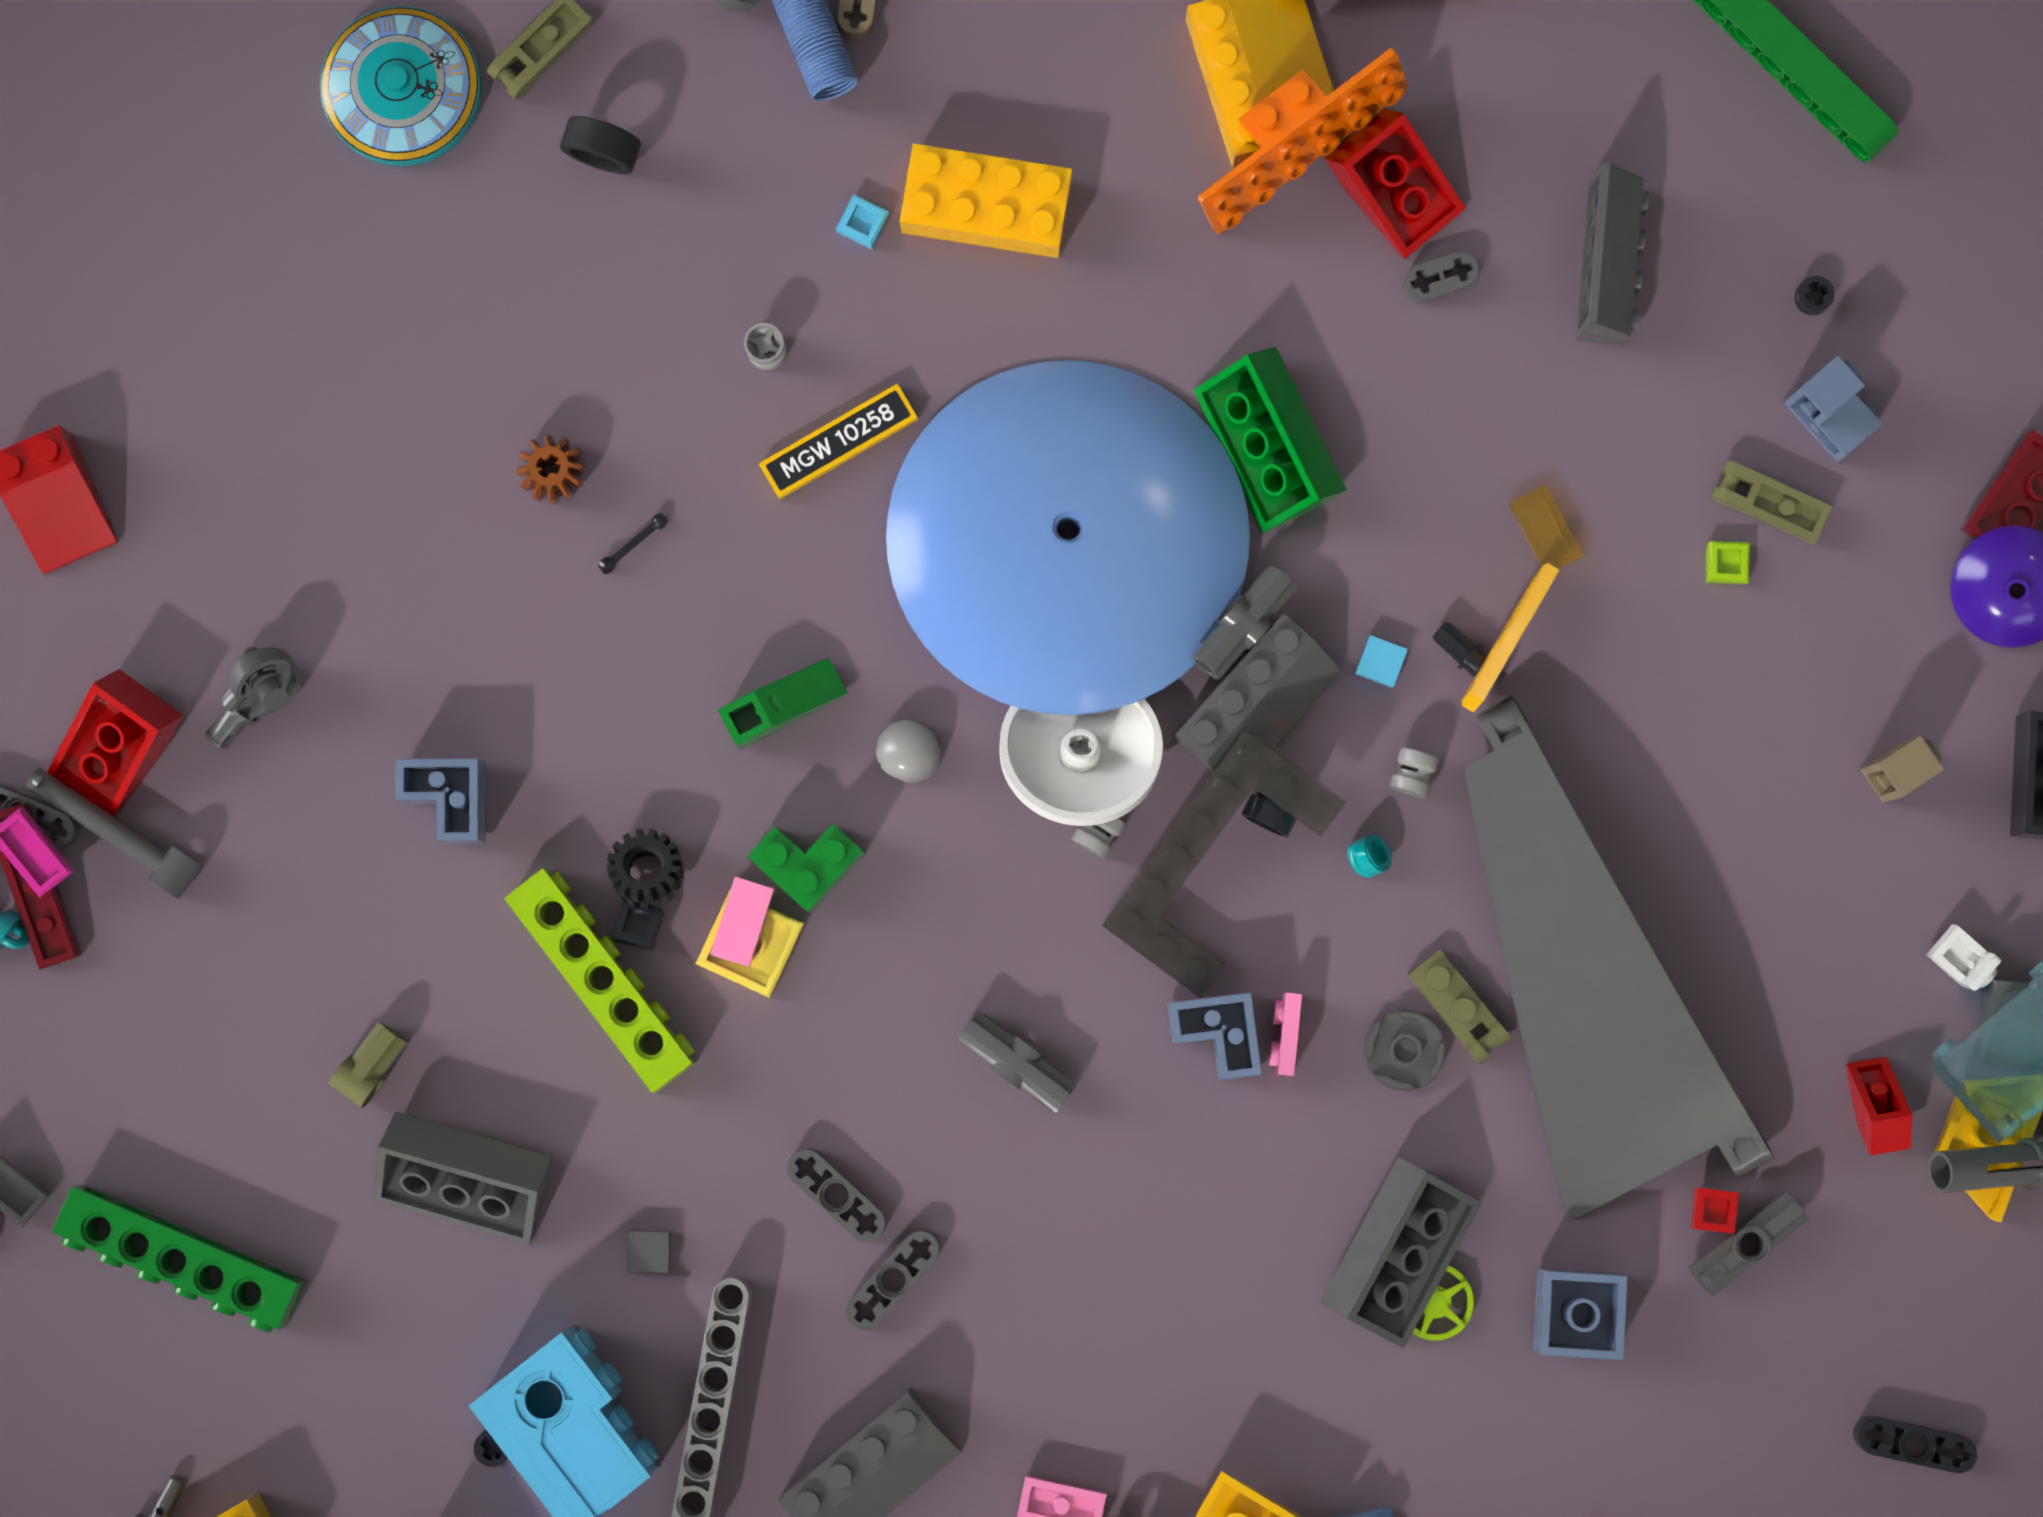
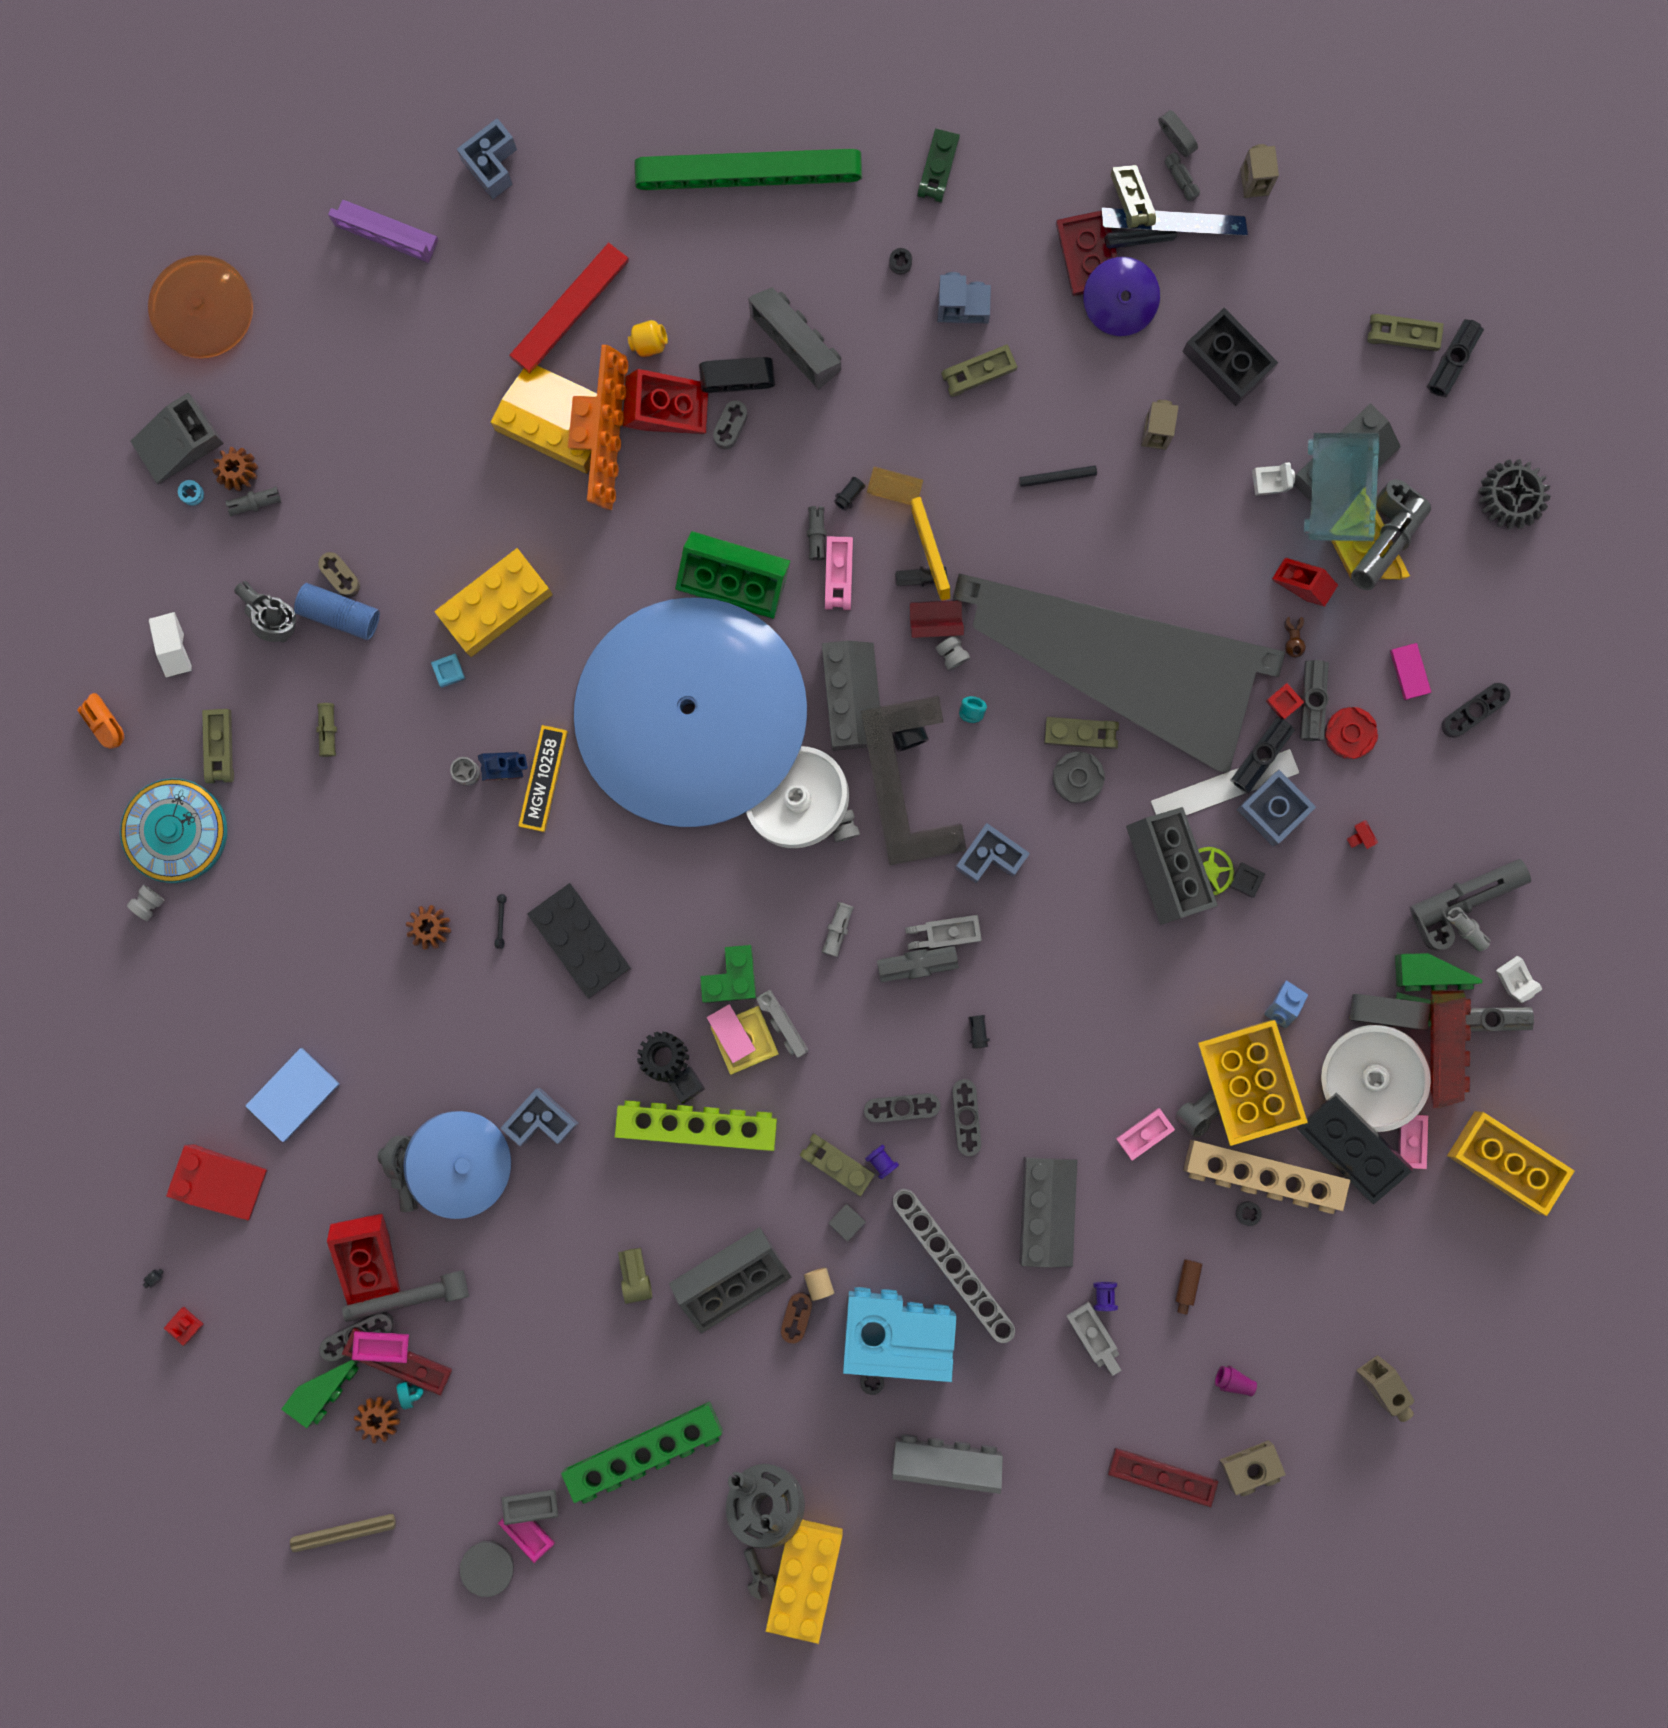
camera: 50 degrees left, 0 degrees up
(226, 492) = (292, 1095): none -> light blue tile
(246, 1421) = (751, 1491): none -> dark grey piece
(295, 129) = (147, 900): none -> light grey wheel
(312, 749) = (457, 1164): none -> medium blue dish
(484, 1284) = (802, 1319): none -> reddish brown beam
(549, 1284) = (819, 1284): none -> tan beam
(600, 145) = (294, 760): black tyre -> none
(669, 149) = (326, 729): none -> olive pin
(691, 652) = (579, 941): none -> black plate
(704, 1181) = (838, 1165): none -> olive plate
(753, 1228) = (881, 1161): none -> dark purple bush
(781, 703) = (644, 919): green slope -> none
(808, 969) = (782, 1022): none -> light grey hinge
(809, 382) = (502, 765): none -> dark blue hips
(908, 751) = (722, 880): light grey hair -> none
(973, 933) = (837, 929): none -> light grey pin
(1003, 1203) = (978, 1032): none -> black pin
(1085, 1063) = (947, 932): none -> light grey hinge
(1244, 622) = (808, 666): dark grey piece -> none
(1287, 1015) = (1013, 817): bright pink plate -> none
(1381, 661) = (886, 619): medium azure tile -> none
(1385, 557) = (838, 572): none -> bright pink plate
(1407, 490) = (816, 533): none -> dark grey pin
(1435, 718) = (936, 618): none -> dark red panel
(1451, 93) = (648, 338): none -> yellow head
(1465, 1355) = (1247, 880): none -> black plate
(1487, 486) = (849, 493): none -> black pin
(1504, 231) = (736, 374): none -> black beam
(1555, 1231) = (1220, 788): none -> white sticker
(1645, 1445) = (1364, 835): none -> red tile
(1653, 1240) = (1272, 743): none -> black piece
(1727, 562) = (988, 416): lime tile -> none
(1733, 705) = (1058, 476): none -> black bar
(1751, 1321) = (1351, 733): none -> red tile
(1796, 1159) = (1295, 643): none -> reddish brown arm
(1888, 1325) = (1410, 671): none -> dark pink tile
(1968, 235) = (938, 164): none -> dark green plate

